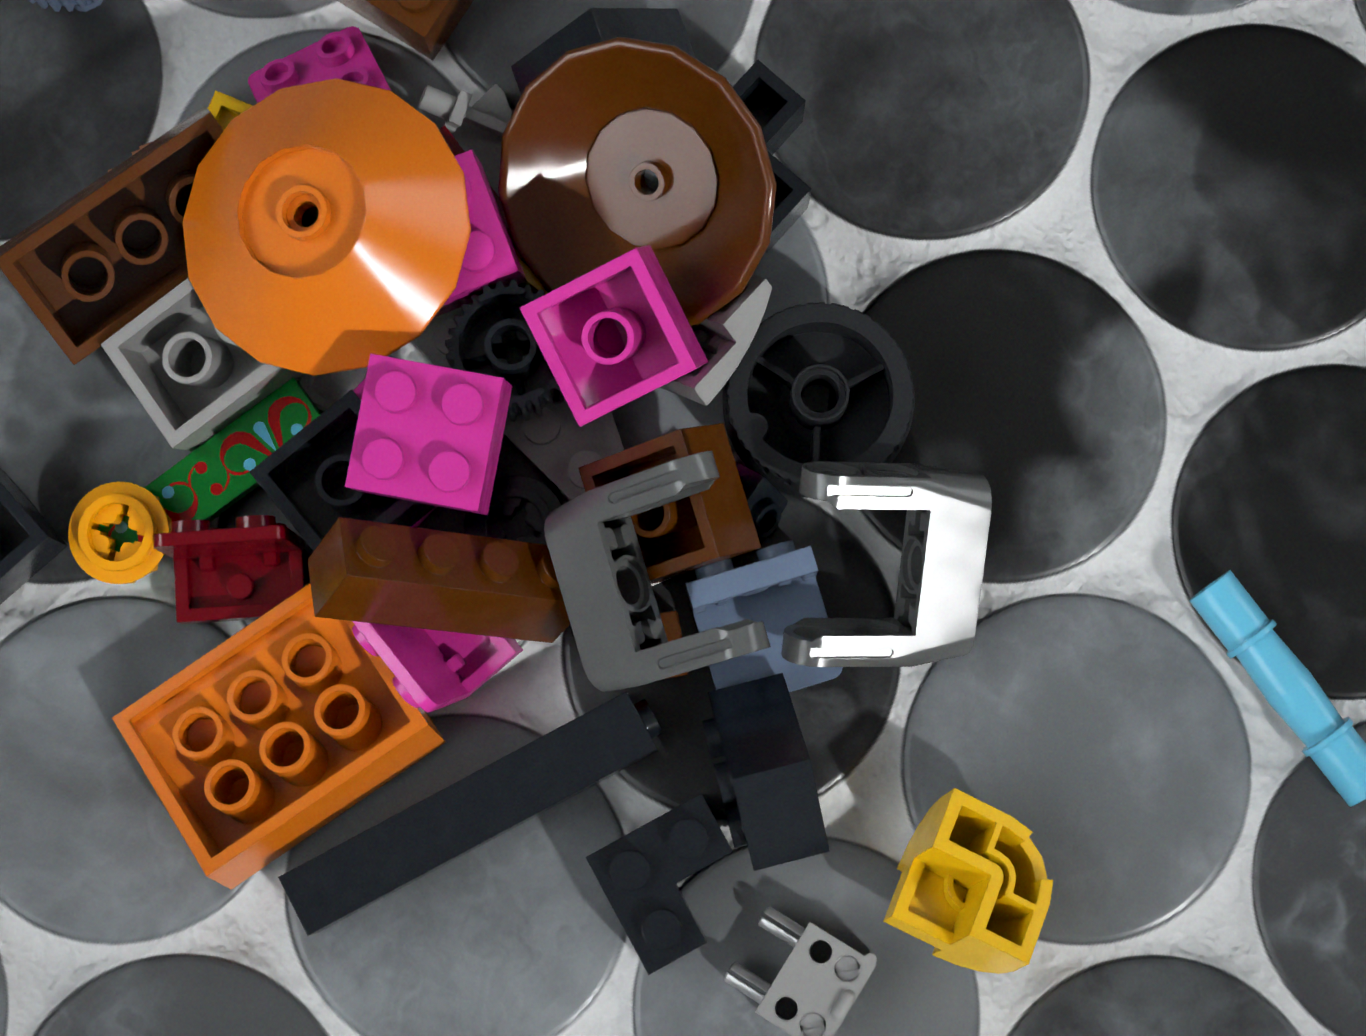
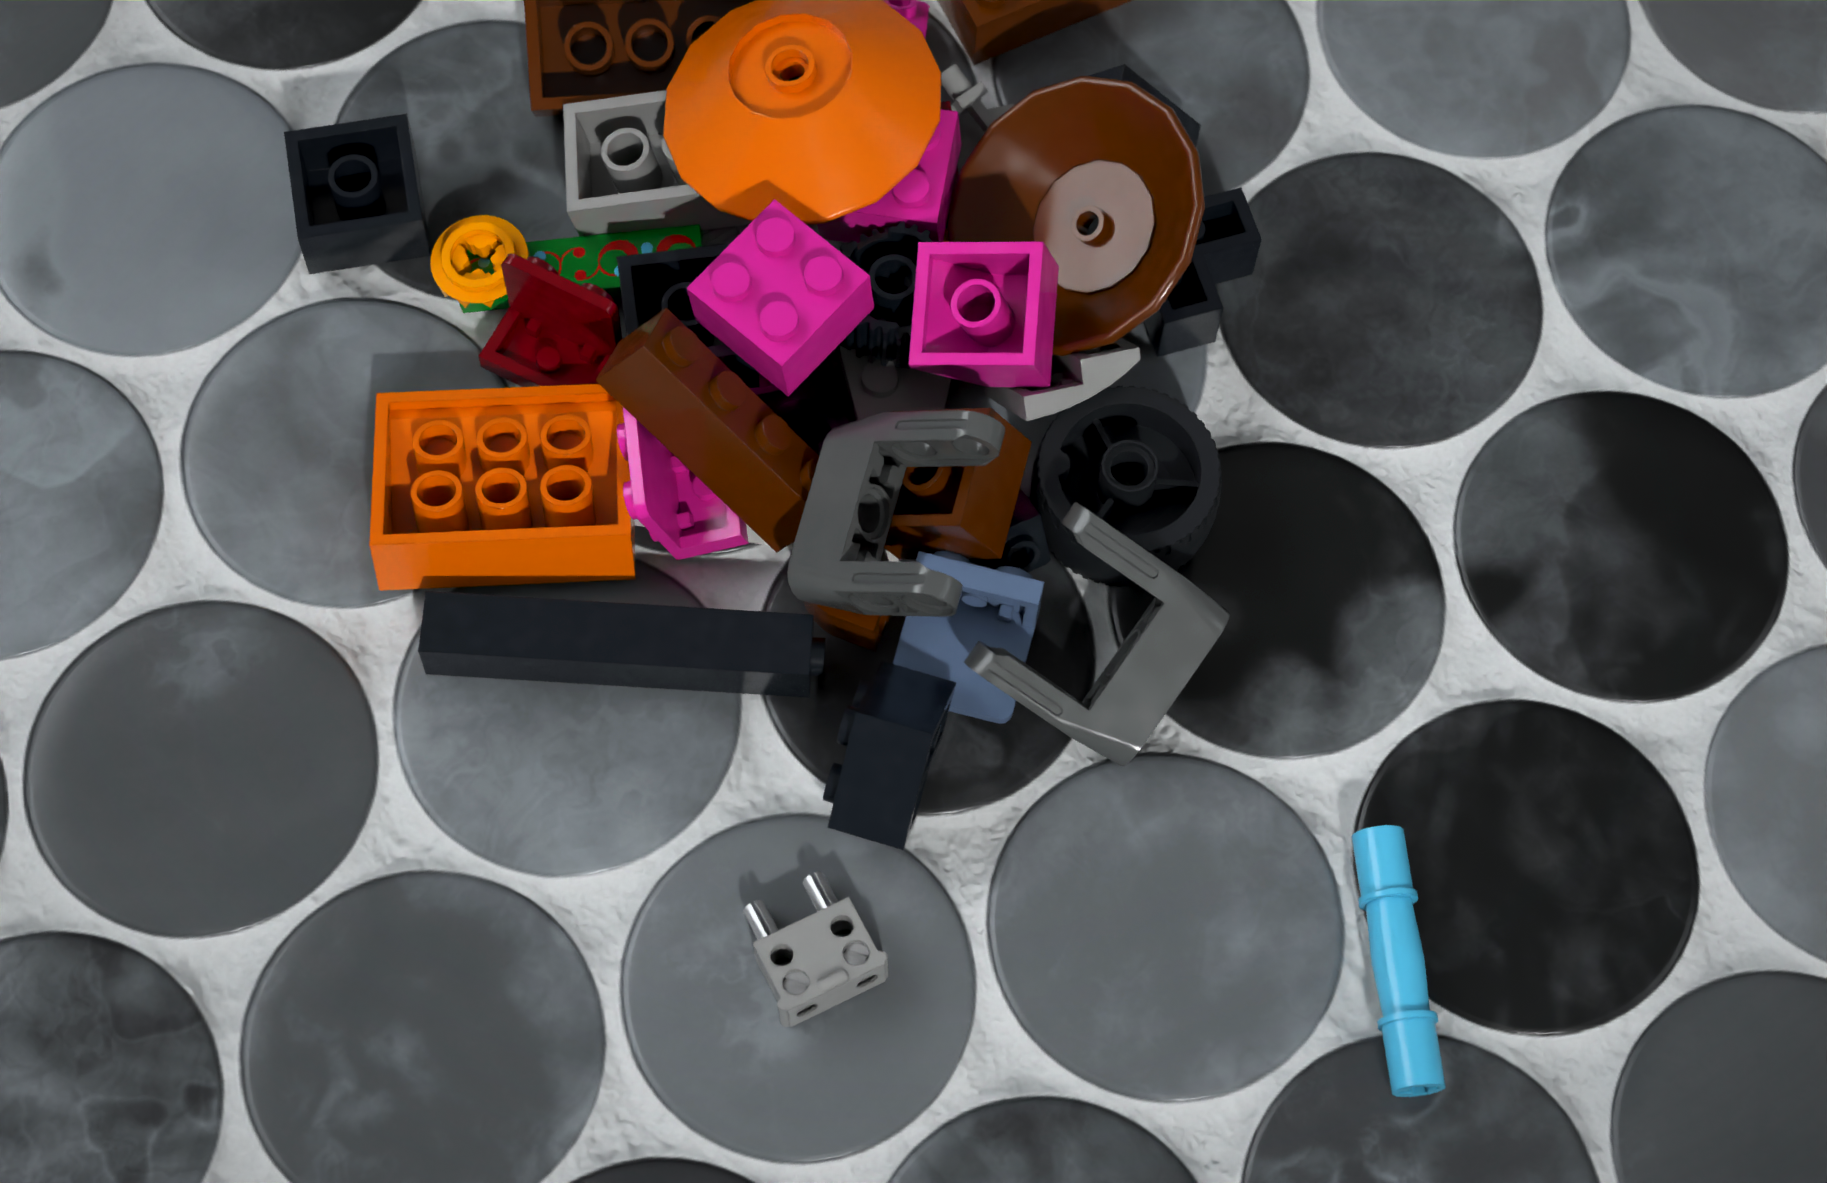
camera: 25 degrees right, 15 degrees down
(643, 874) = (741, 773): black brick -> none
(972, 886) = (1008, 947): yellow brick -> none

